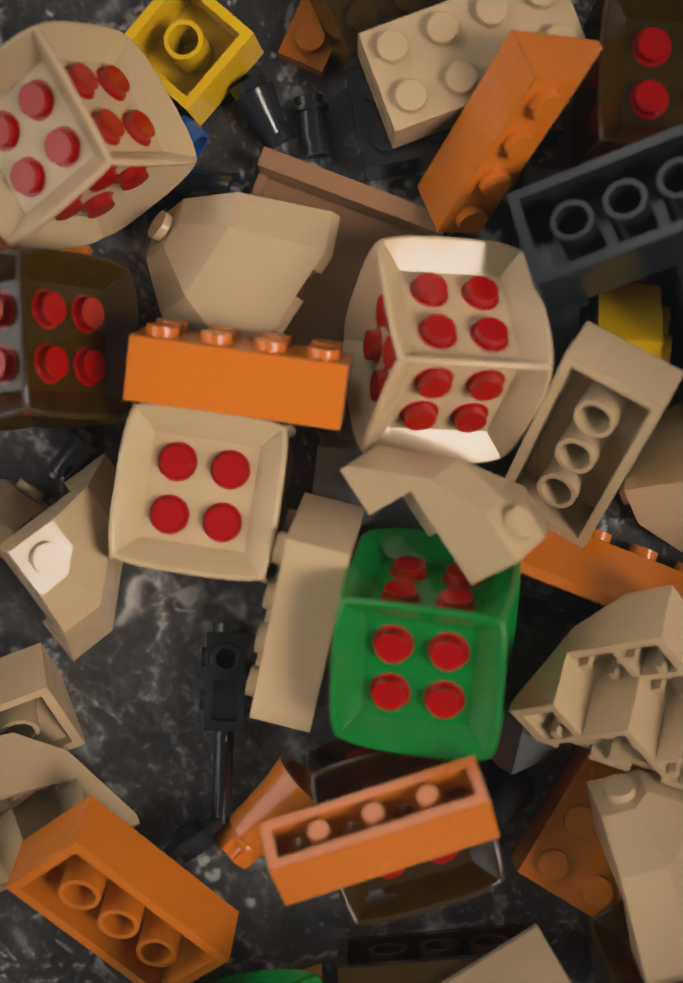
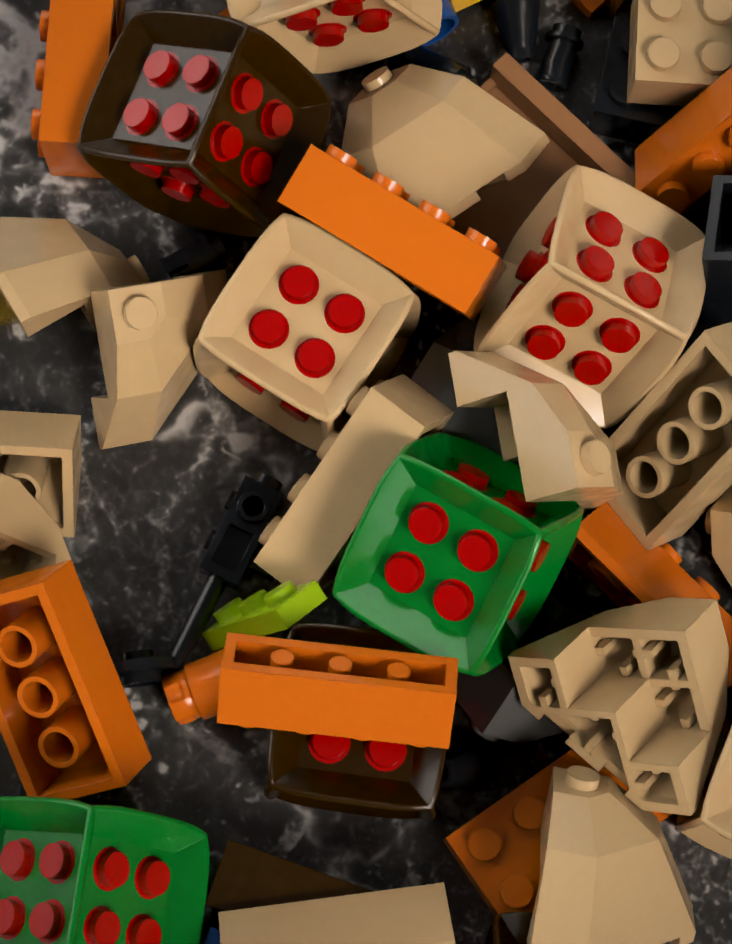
camera: 20 degrees right, 10 degrees down
(279, 757) = (264, 612): none -> lime plate

